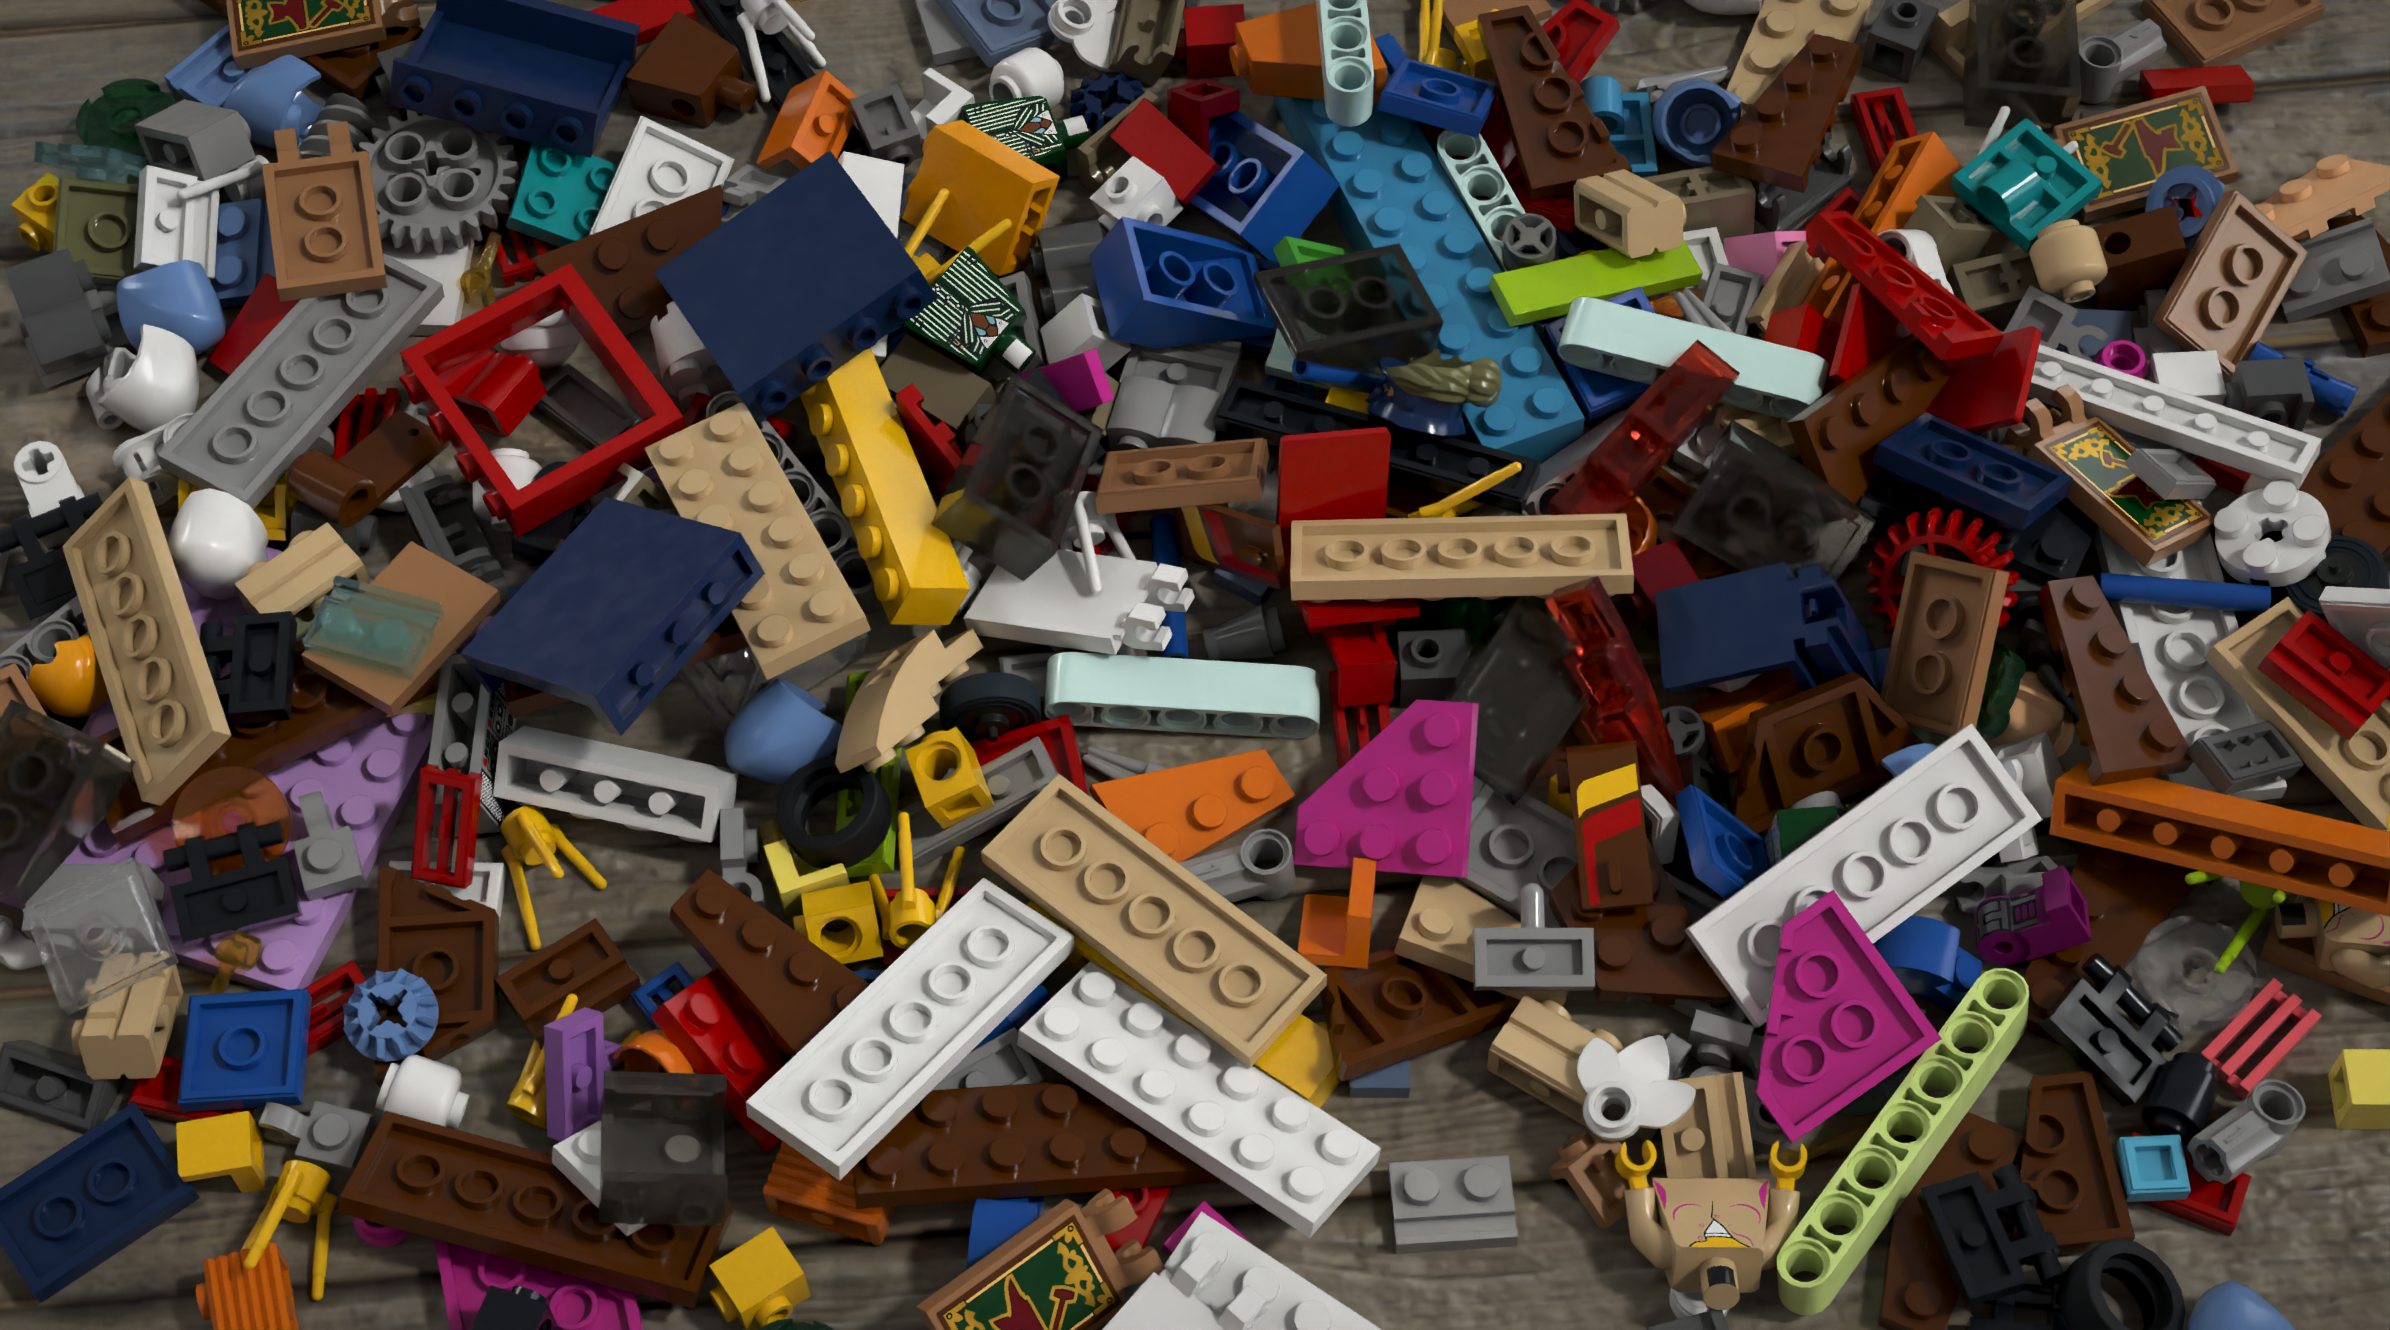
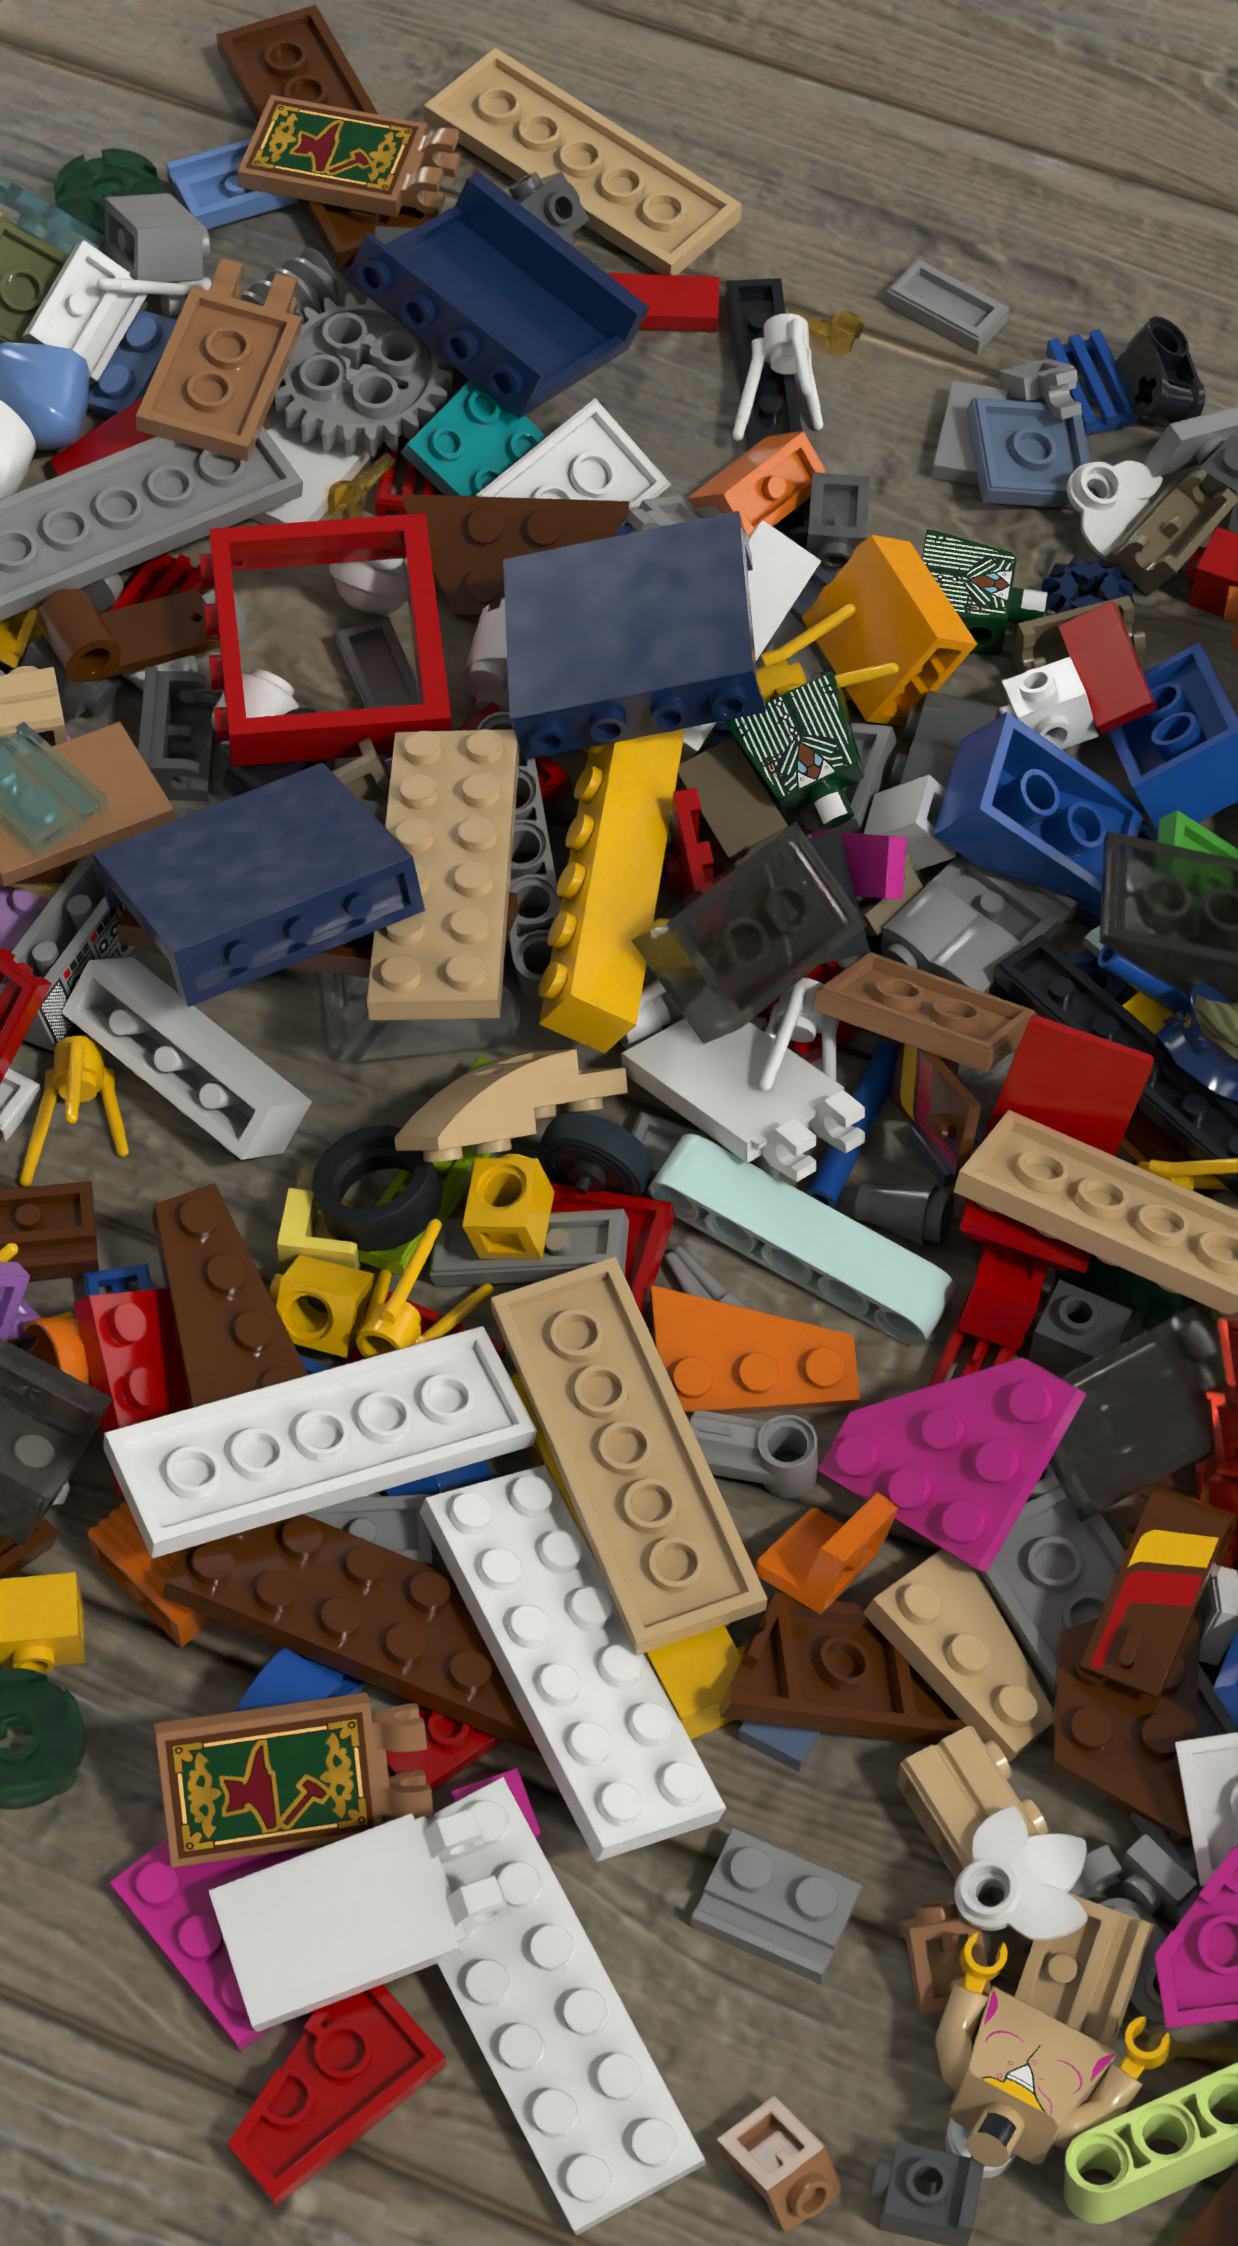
camera: 25 degrees right, 0 degrees up
(274, 100) = (254, 231): medium blue piece -> none
(495, 390) = (292, 608): red brick -> none
(689, 75) = (673, 380): reddish brown torso -> none
(737, 850) = (264, 1186): light grey plate -> none
(779, 733) = (369, 1080): medium blue piece -> none
(941, 104) = (910, 519): white panel -> none
(1027, 75) = (1016, 527): white head -> none
(1195, 103) = (1166, 632): dark red panel -> none
(1533, 955) = (999, 1686): light grey plate -> none

